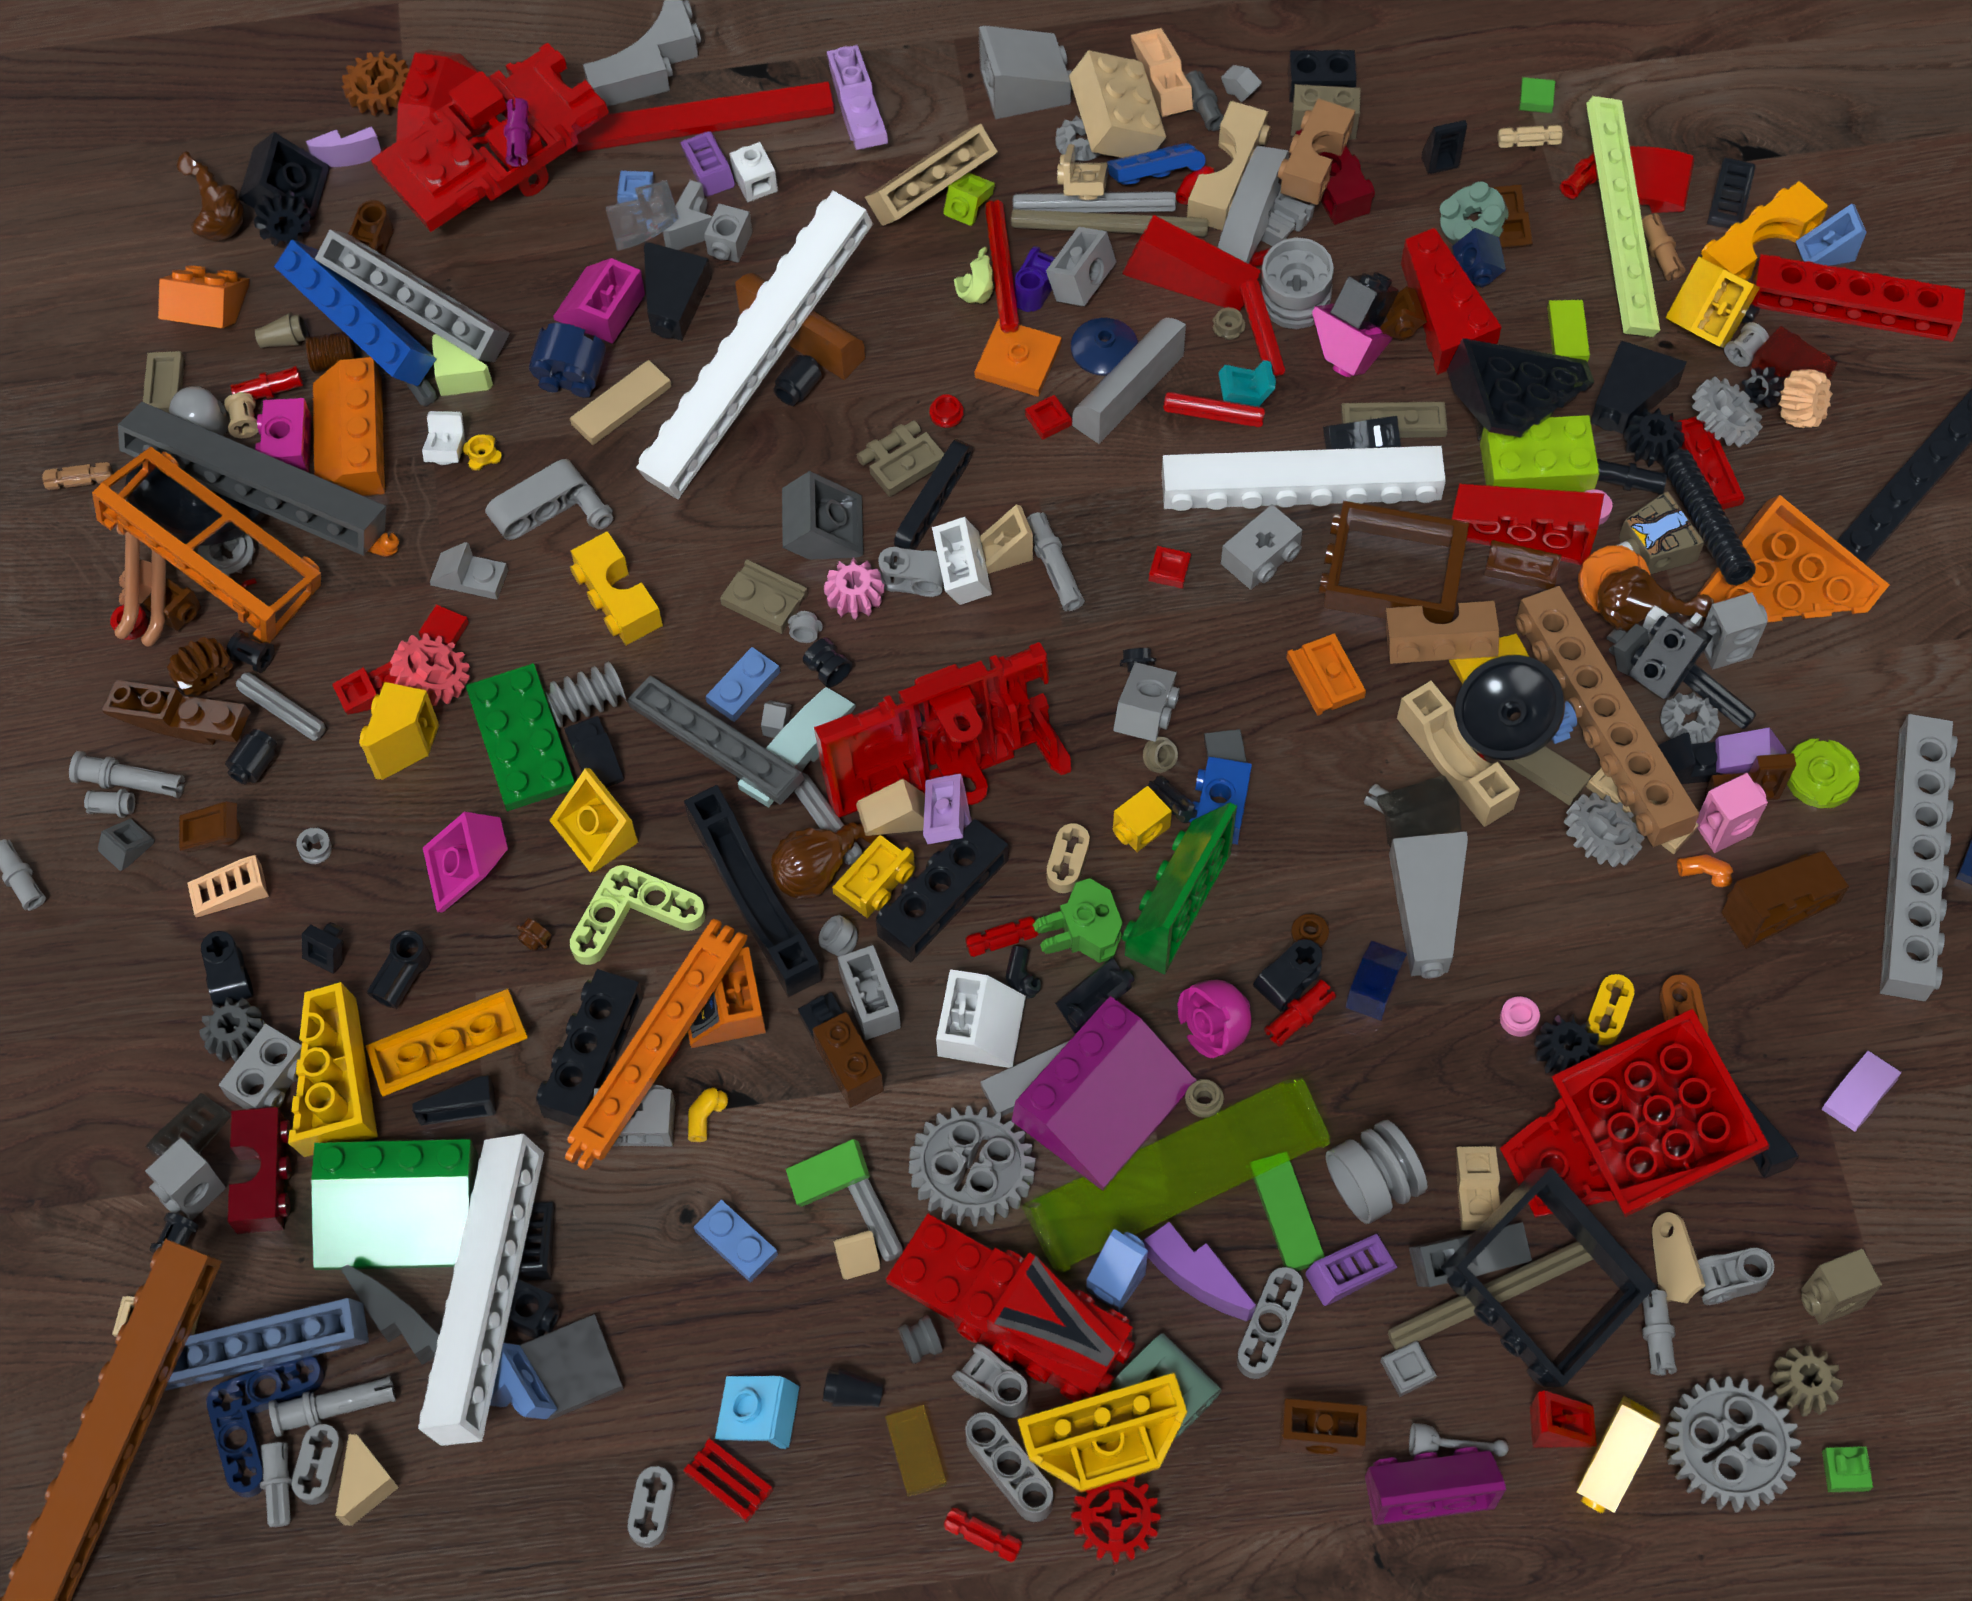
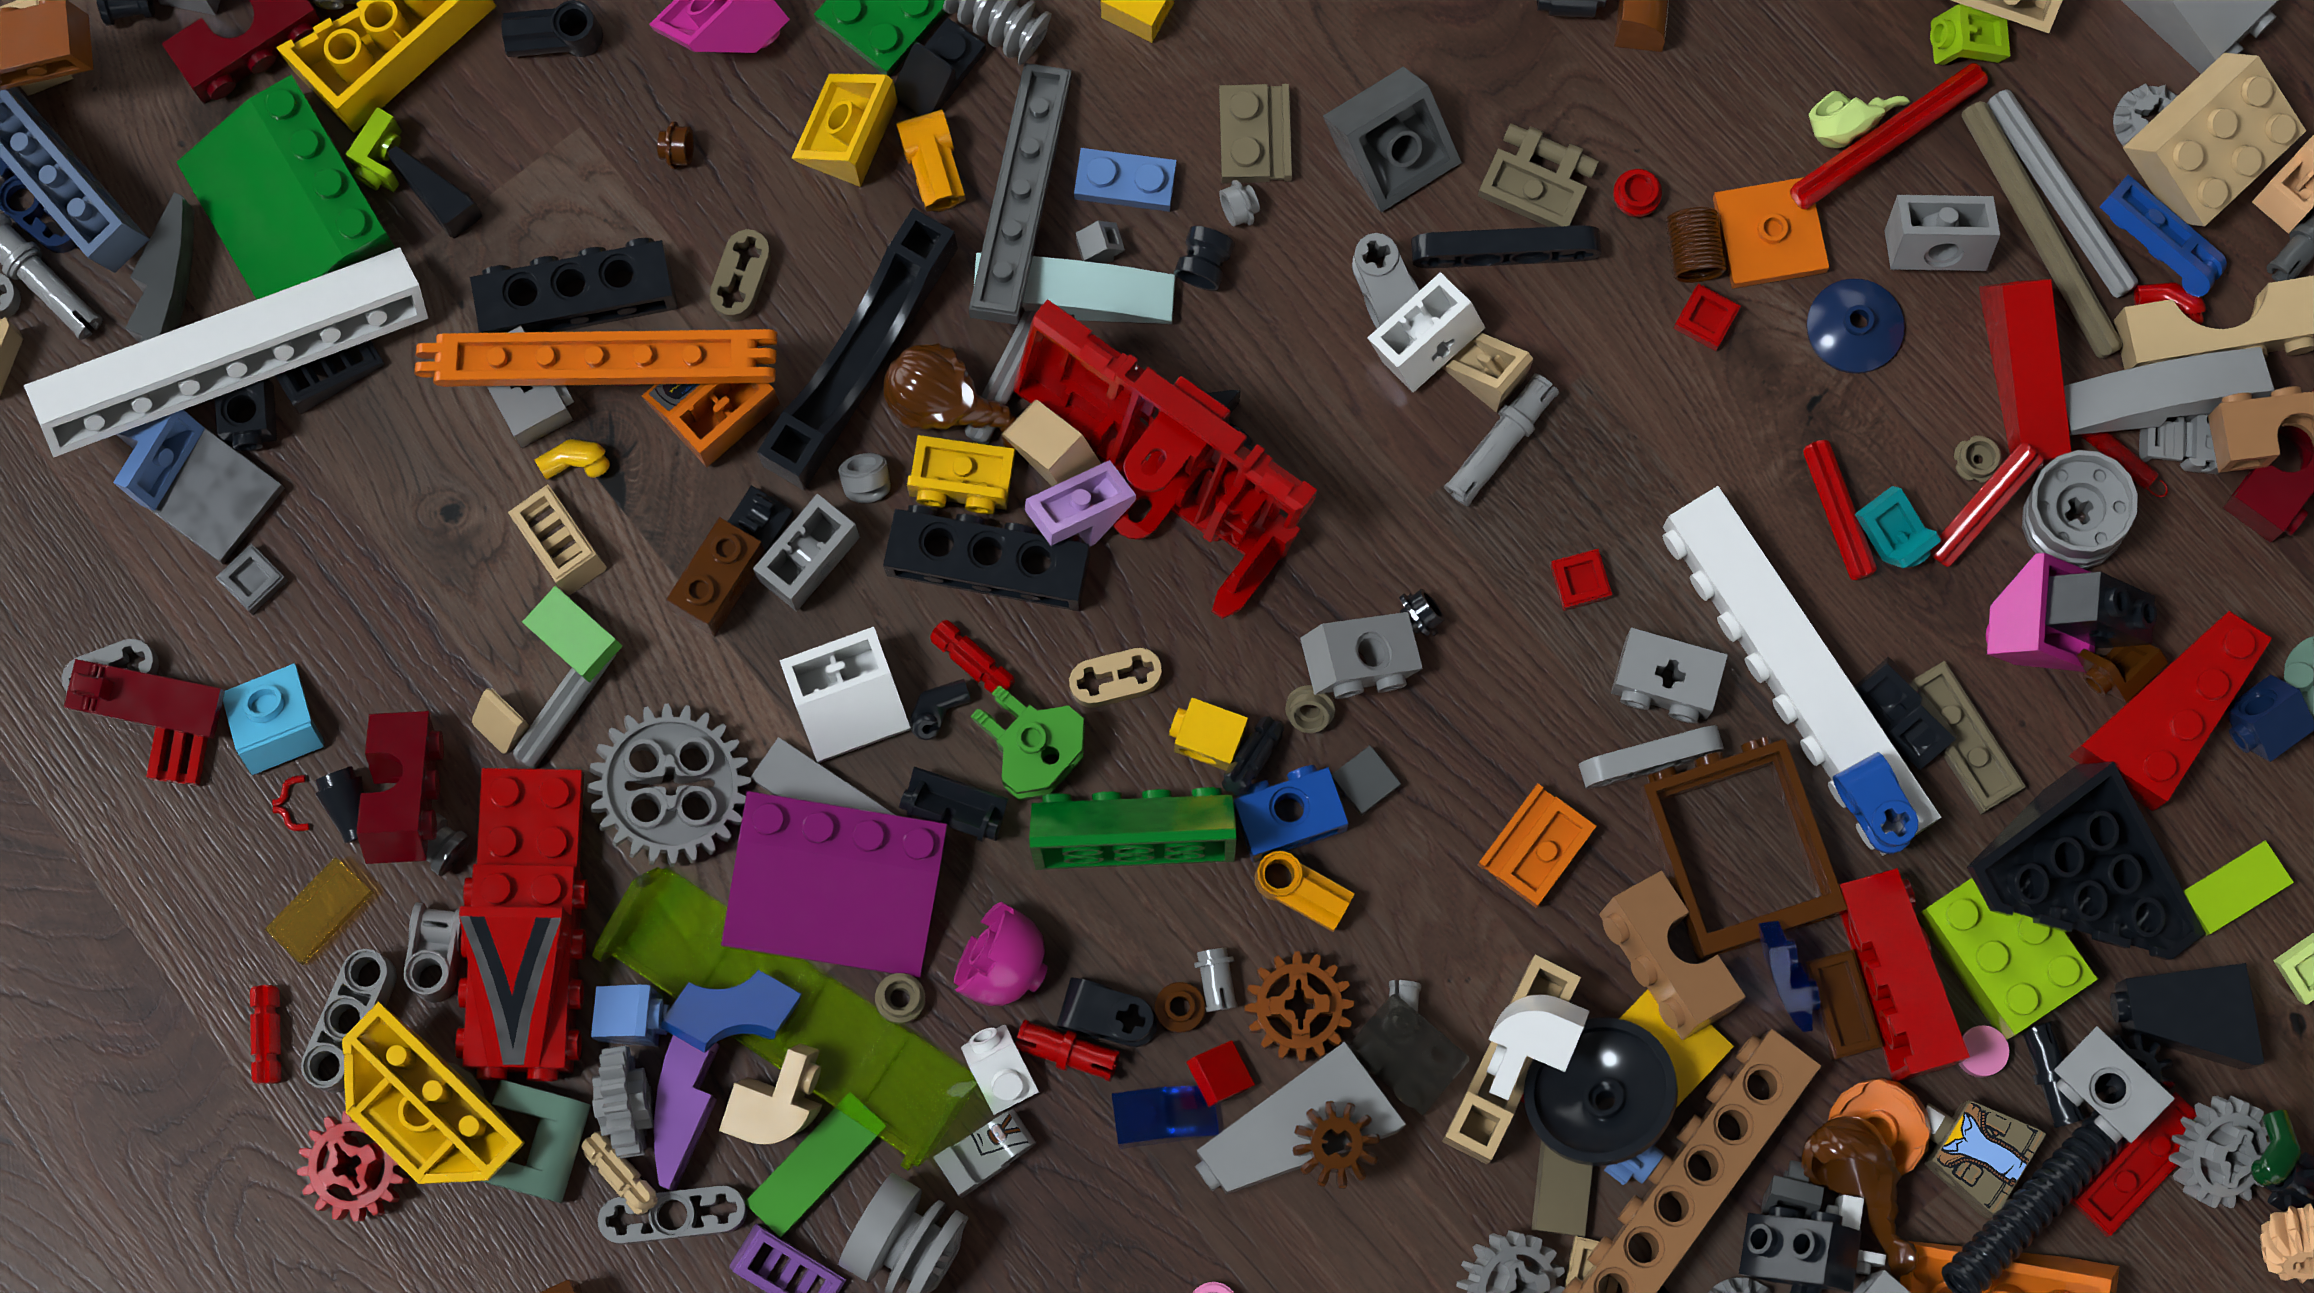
camera: 60 degrees right, 15 degrees up
(401, 1123) = (372, 147): none -> lime bracket
(445, 1042) = (496, 135): light orange slope -> none
(622, 901) = (772, 215): yellowish green beam -> none
(643, 783) = (929, 150): none -> light orange piece
(647, 1373) = (251, 579): none -> flat silver tile
(655, 937) = (751, 278): none -> dark tan beam
(690, 1487) = (144, 699): none -> dark red hinge
(735, 1241) = (448, 581): medium blue plate -> none
(752, 1139) = (574, 565): none -> tan slope
(825, 1442) = (283, 797): none -> red piece
(854, 588) = (1302, 233): bright pink gear -> none
(894, 1342) = (400, 820): none -> dark red arch
(1001, 395) = (1695, 244): none -> reddish brown piece
(1032, 282) = (1895, 178): dark purple piece -> none
(1081, 179) = (2080, 156): tan bracket -> none
(1130, 380) = (1813, 386): light grey brick -> none
(1158, 1190) = (708, 1015): none -> blue tile
(1178, 1302) = (623, 1102): none -> light grey gear
(1223, 1337) = (619, 1173): none -> tan axle
(1242, 1209) = (772, 1113): none -> tan brick
(1276, 818) = (1308, 892): none -> light orange piece
(1287, 1059) = (998, 1068): none -> white bracket
(1304, 899) = (1216, 979): none -> light grey pin
(1307, 583) = (1650, 757): none -> light grey beam
(1341, 1100) = (985, 1152): none -> light grey leg
(1356, 875) = (1322, 1007): none -> dark orange gear
(1368, 929) = (1220, 1073): none -> red tile
(1415, 466) = (1871, 796): none -> blue piece
(1449, 723) = (1535, 1028): none -> white brick
(1475, 873) = (1334, 1162): none -> reddish brown gear
(1486, 575) = (1788, 975): none -> clear blue slope
(1675, 422) = (2101, 1056): none -> light grey brick
(1747, 376) = (2281, 1154): none -> dark green arm

